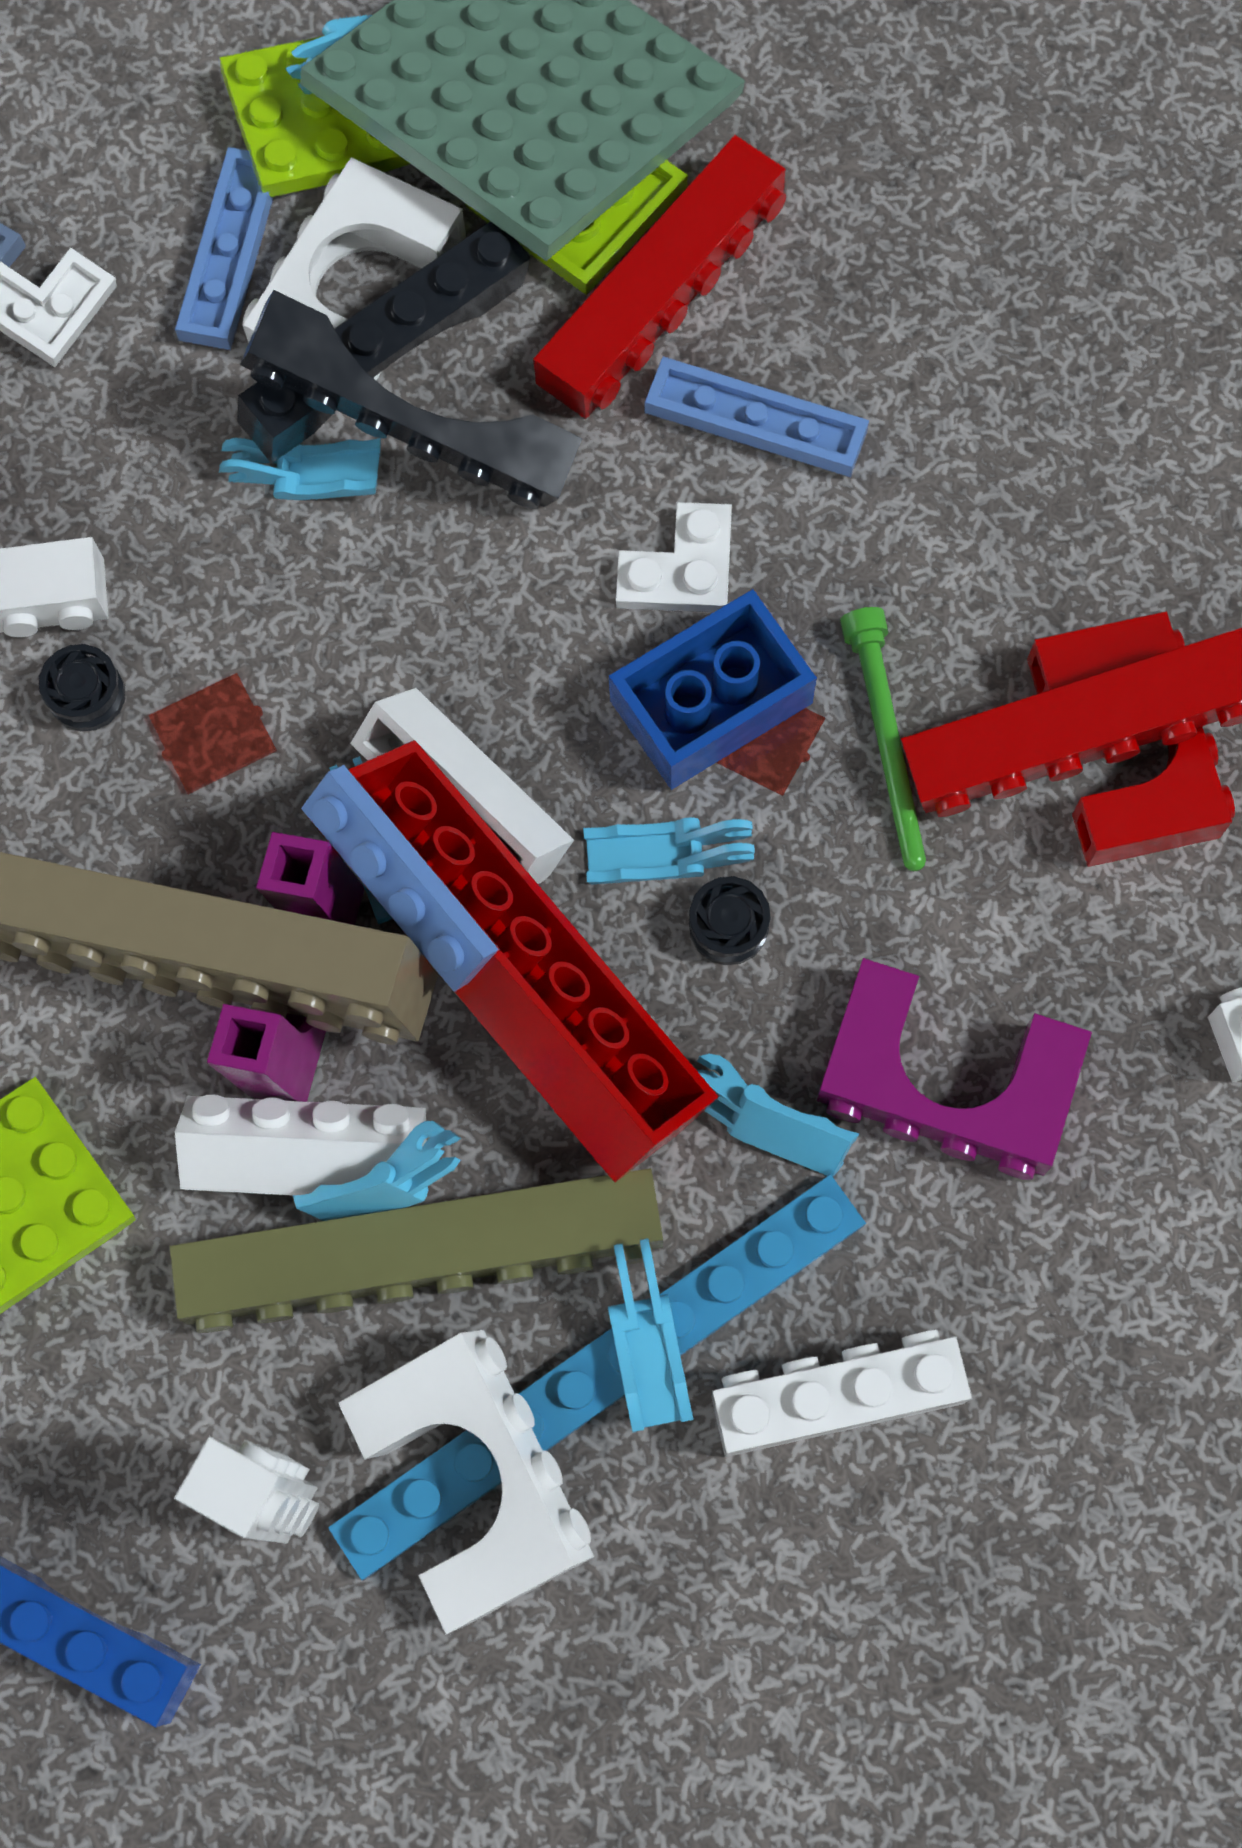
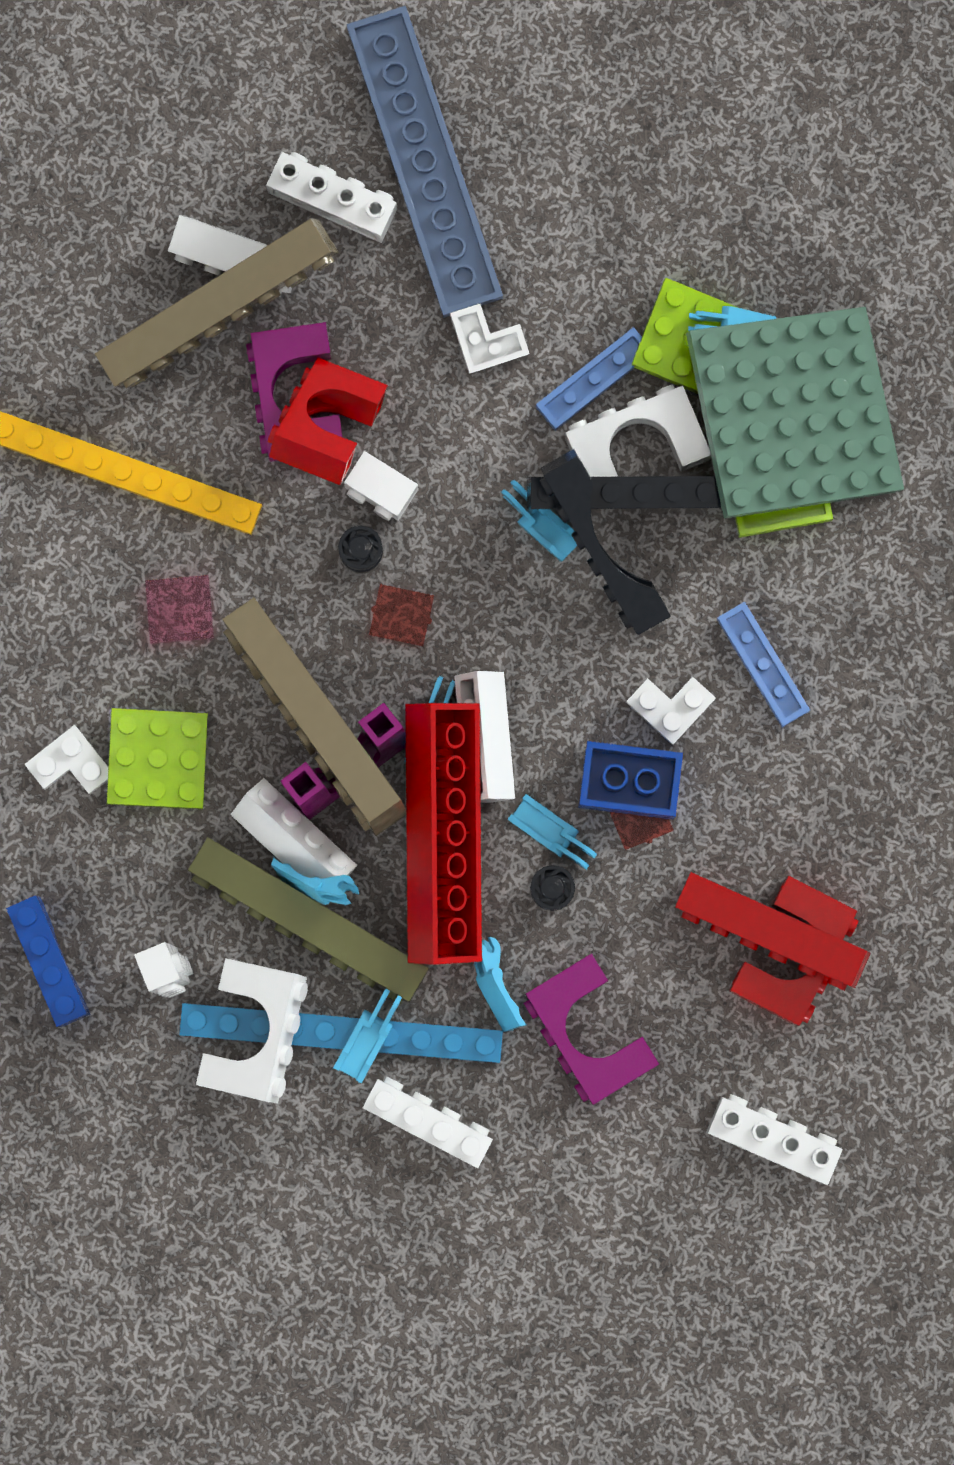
camera: 35 degrees right, 10 degrees up
(399, 878) = (419, 767): medium blue plate -> none
(660, 278) = (778, 560): red brick -> none
(865, 633) = (721, 809): bright green piece -> none

